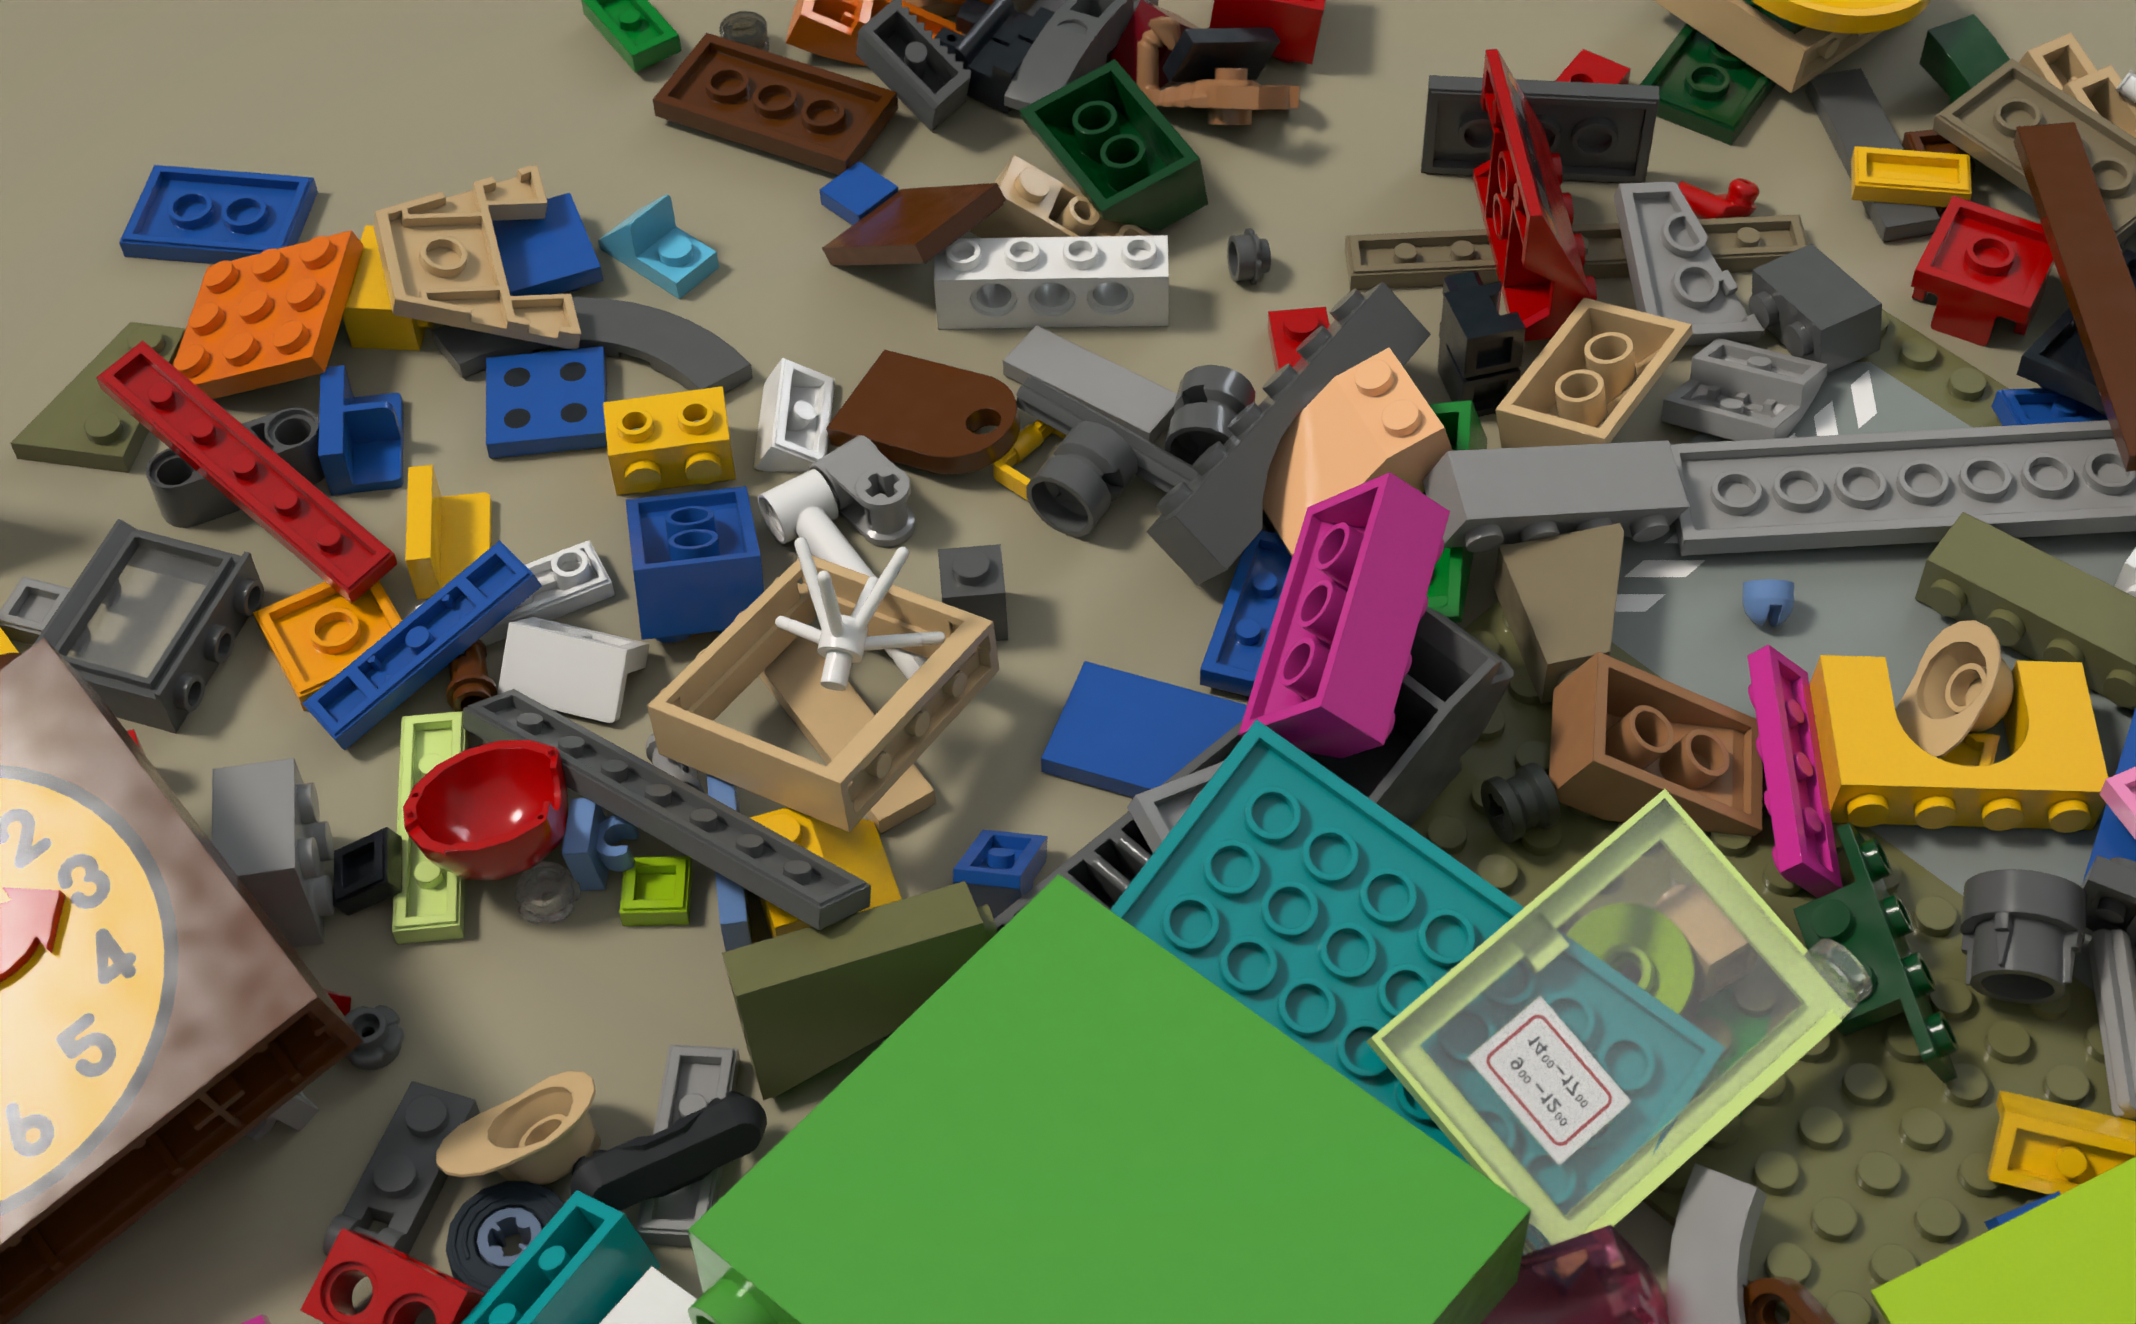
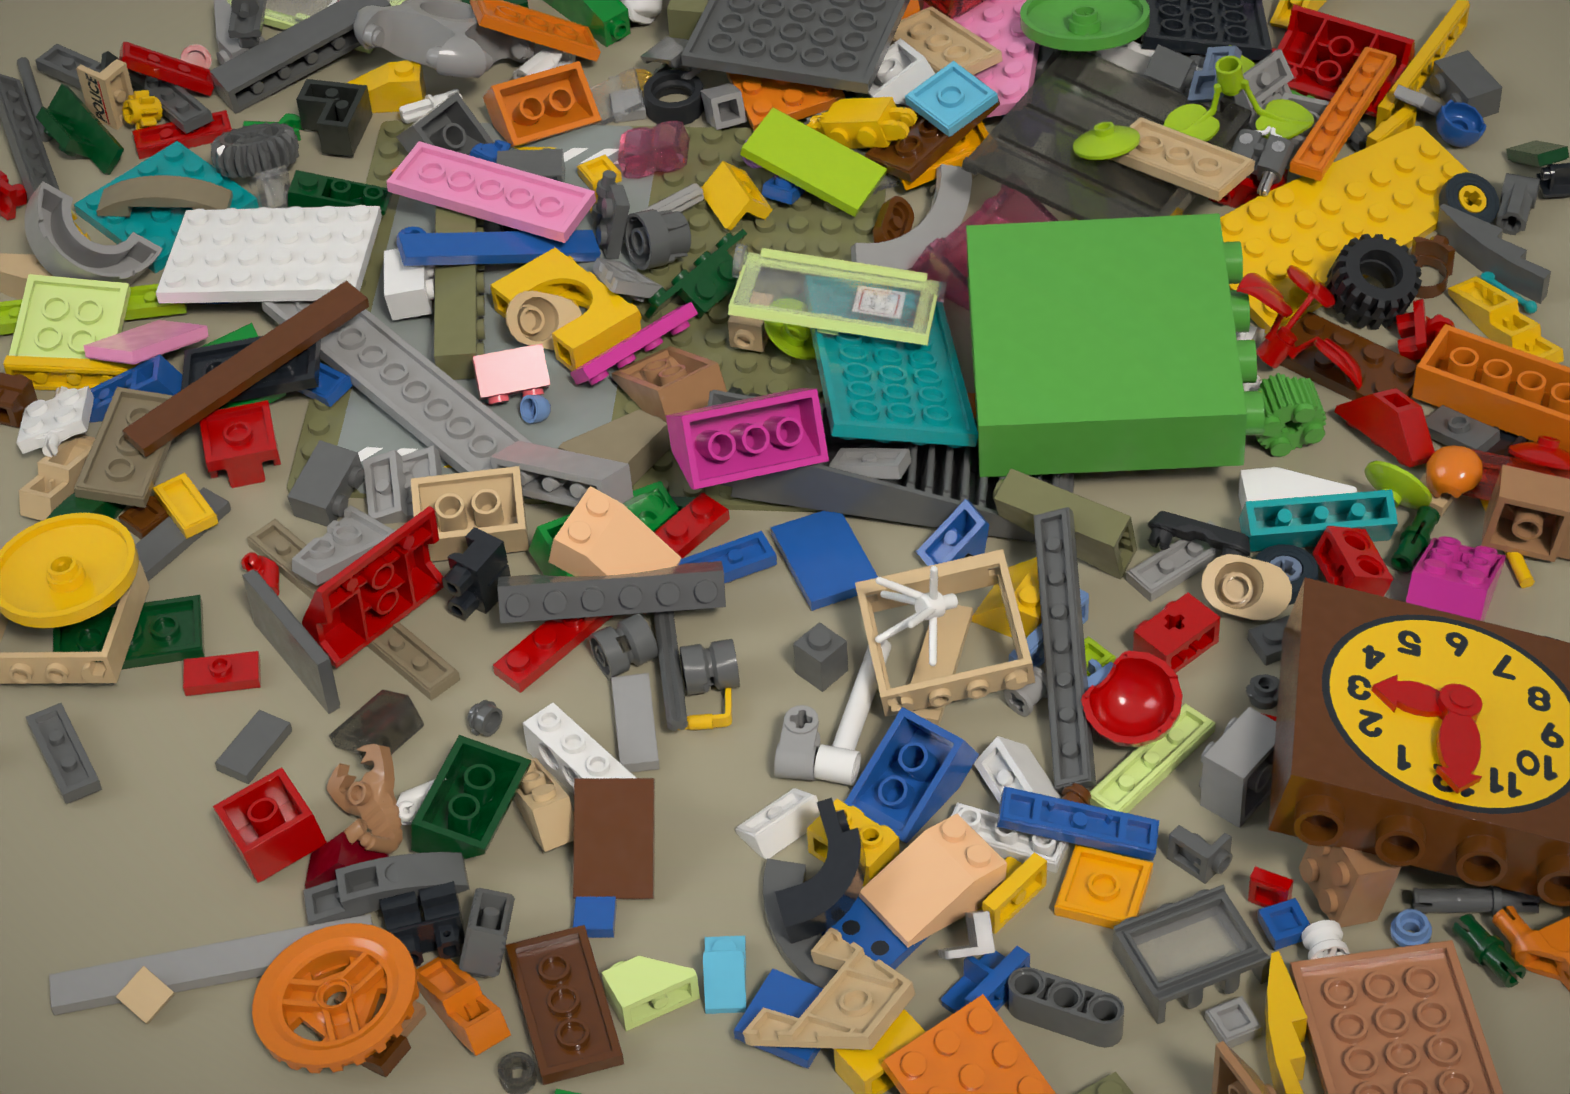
camera: 130 degrees left, 5 degrees down
(247, 472) = (1074, 972): red tile -> none
(247, 736) = (1197, 856): none -> dark grey bracket
(367, 871) = (1190, 753): black tile -> none
(400, 414) = (979, 937): none -> panel
(516, 466) = (935, 881): none -> light nougat slope
(562, 998) = (1178, 632): none -> red brick
(617, 346) = (834, 889): none -> black arch
(710, 163) = (648, 989): none -> yellowish green slope
(929, 414) = (726, 766): reddish brown tile -> none
(1194, 132) = (411, 801): none -> white arm
(1210, 48) = (341, 808): black tile -> none
(1336, 160) = (384, 720): none -> clear smoke bracket
(1421, 53) = (253, 746): none -> dark grey tile
(1857, 589) = (510, 373): none -> brick
(1952, 836) = (624, 279): none -> light grey wing

